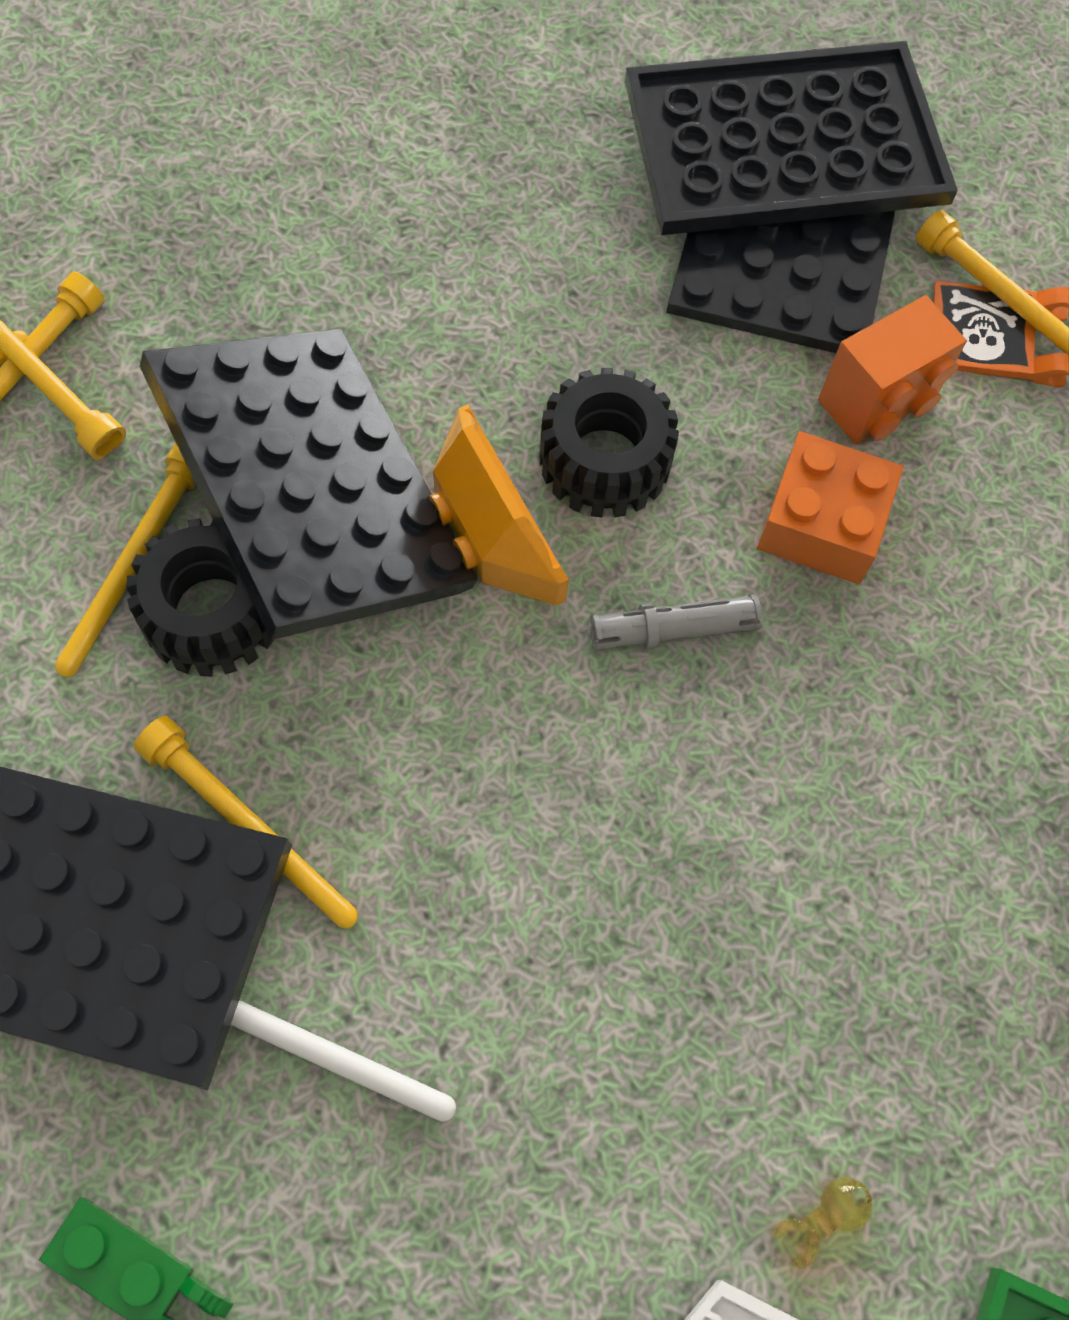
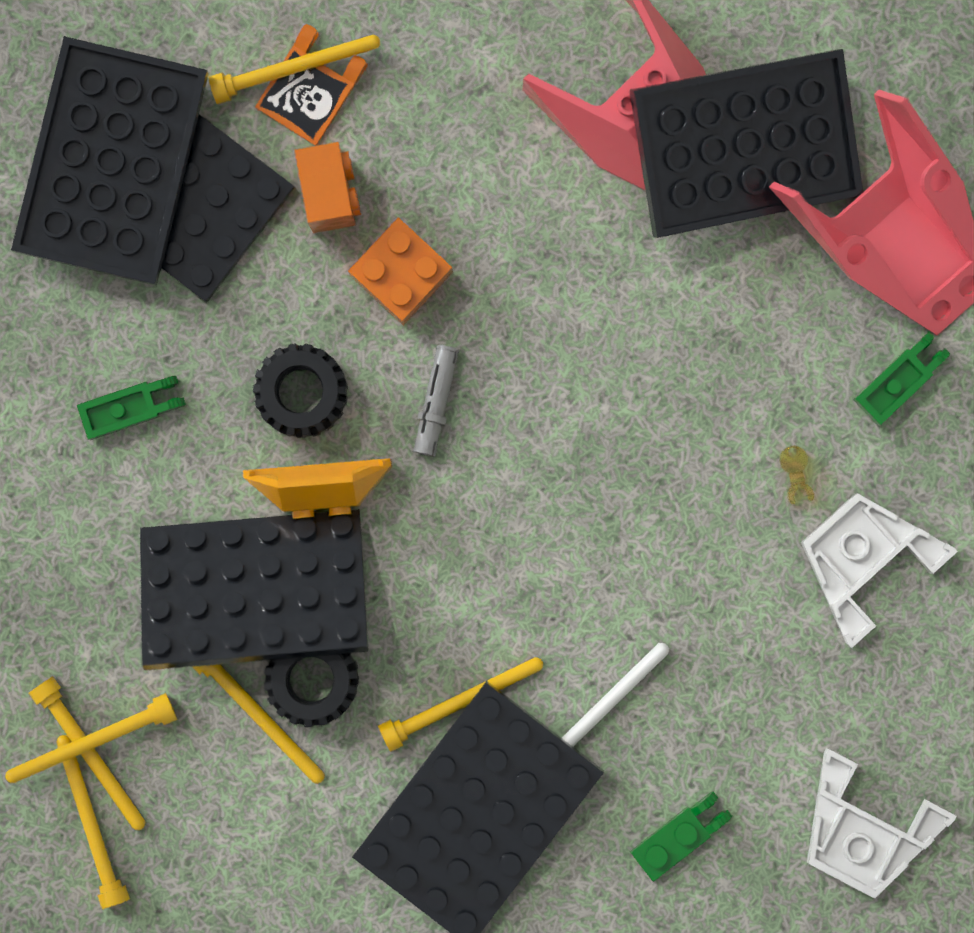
camera: 65 degrees left, 20 degrees up
(492, 266) = (126, 408): none -> green hinge

